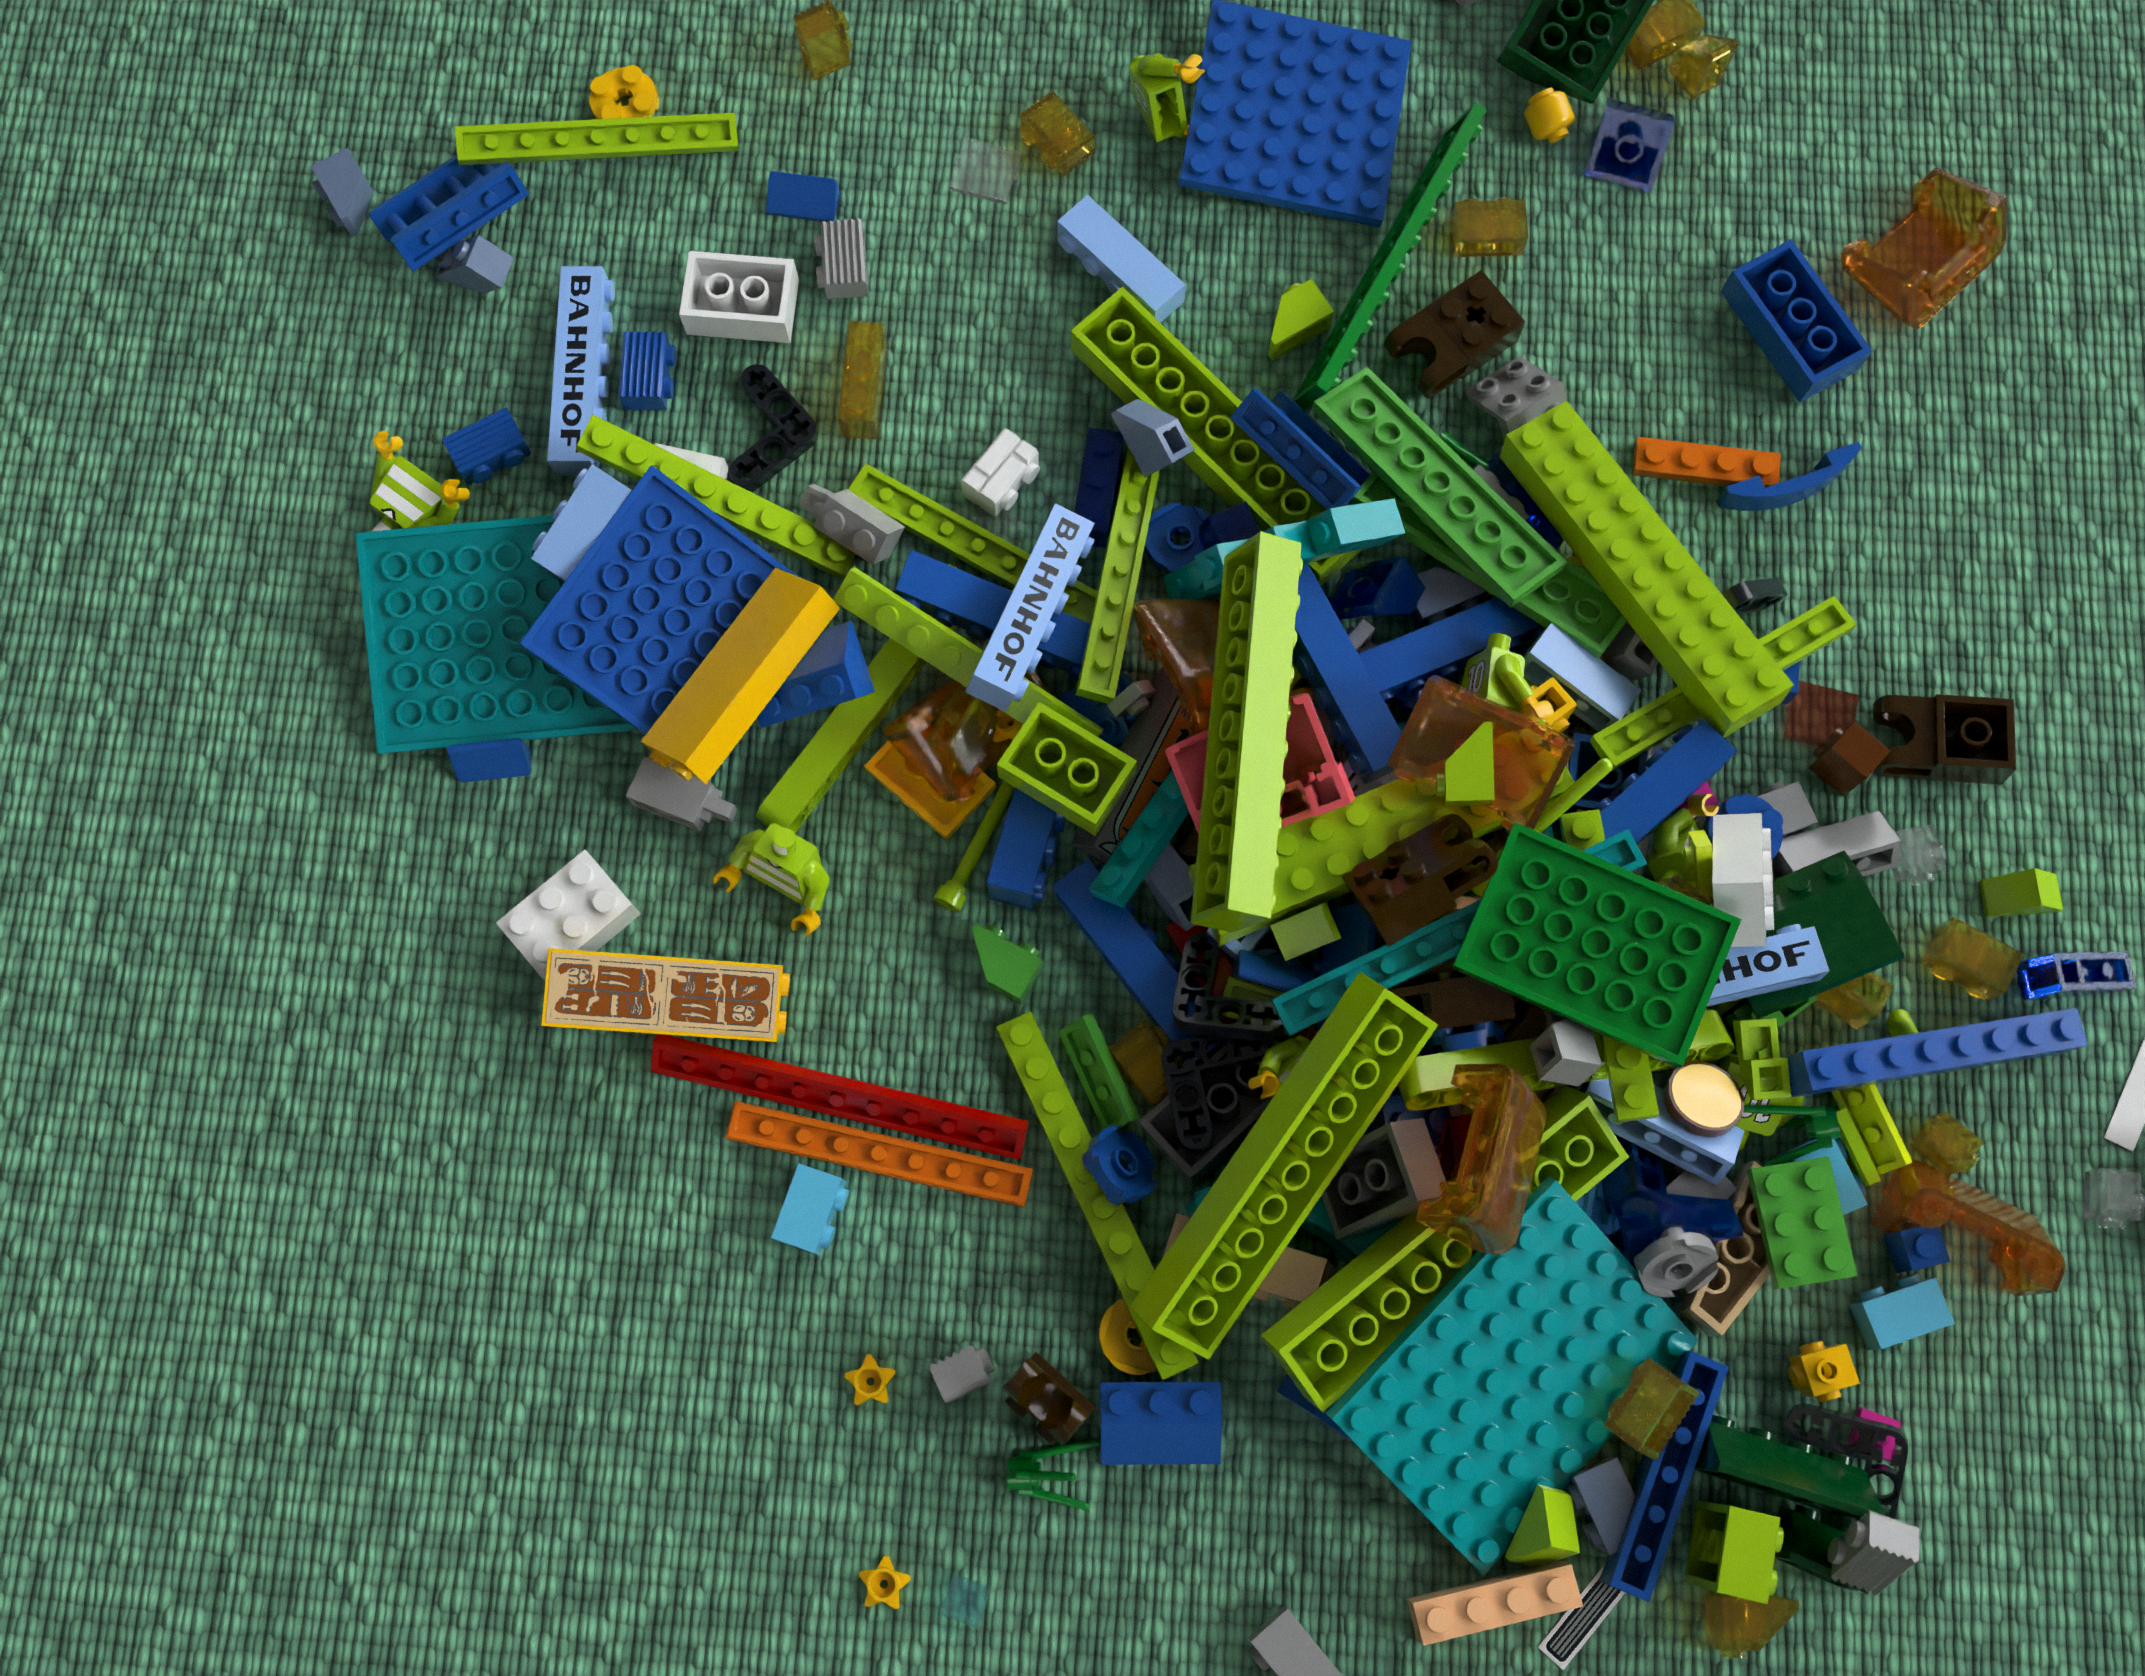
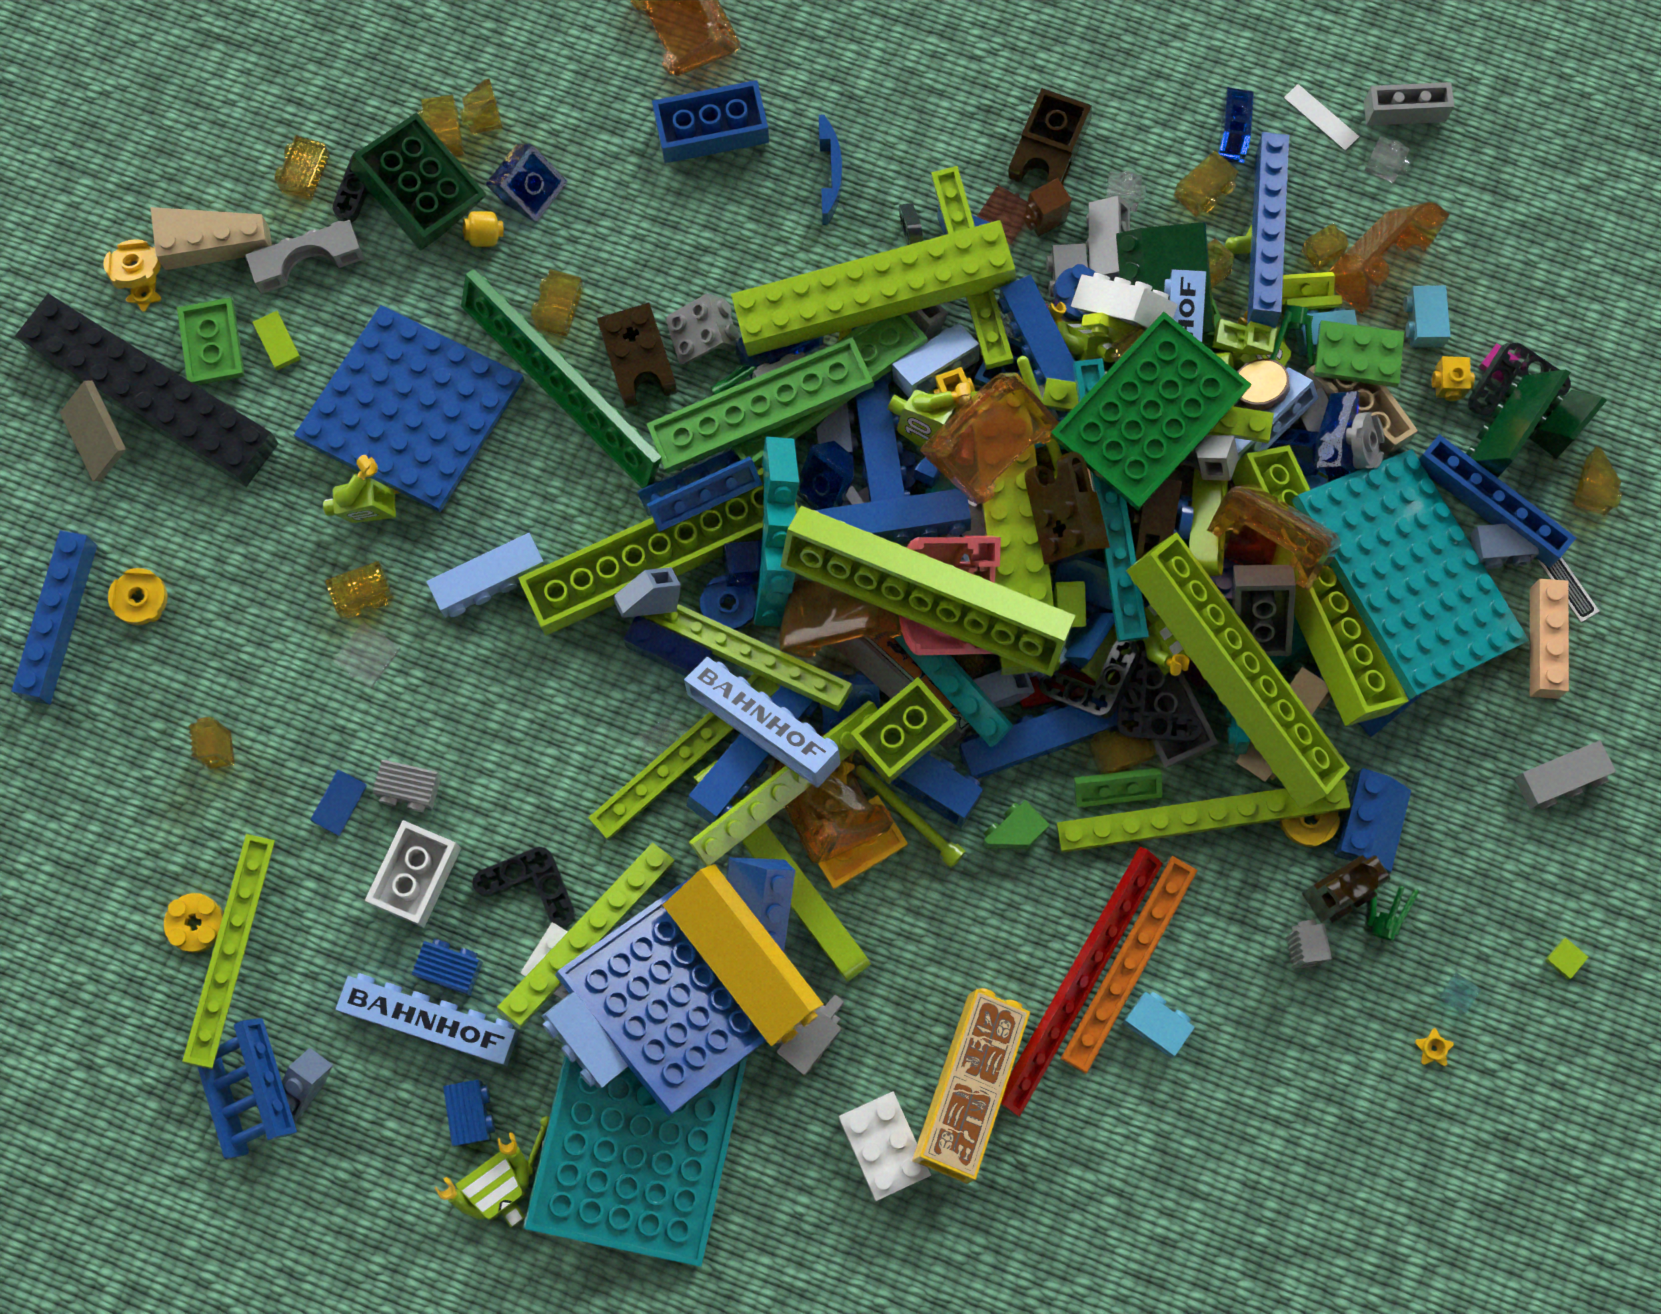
camera: 75 degrees left, 0 degrees up
(346, 188) = (189, 1175): sand blue slope -> none
(490, 760) = (735, 1177): blue slope -> none
(784, 864) = (893, 969): lime torso -> none
(852, 522) = (636, 840): light grey hinge -> none
(859, 1377) = (1298, 1017): yellow plate -> none
(863, 380) = (517, 798): clear yellow brick -> none
(1001, 473) = (631, 717): white brick -> none
(1120, 1183) = (1190, 791): blue plate -> none
(1132, 699) = (855, 671): light grey plate -> none
(1300, 317) = (580, 461): lime slope -> none
(1469, 772) = (1001, 450): lime slope -> none
(1546, 1529) = (1511, 587): lime slope -> none
(1650, 1408) = (1454, 492): clear yellow brick -> none
(1703, 462) = (793, 221): orange plate -> none
(1734, 1551) = (1558, 474): lime brick -> none
(1874, 1552) = (1586, 384): light grey brick -> none
(1916, 1248) = (1391, 292): blue brick -> none
(2021, 893) = (1170, 137): lime slope -> none

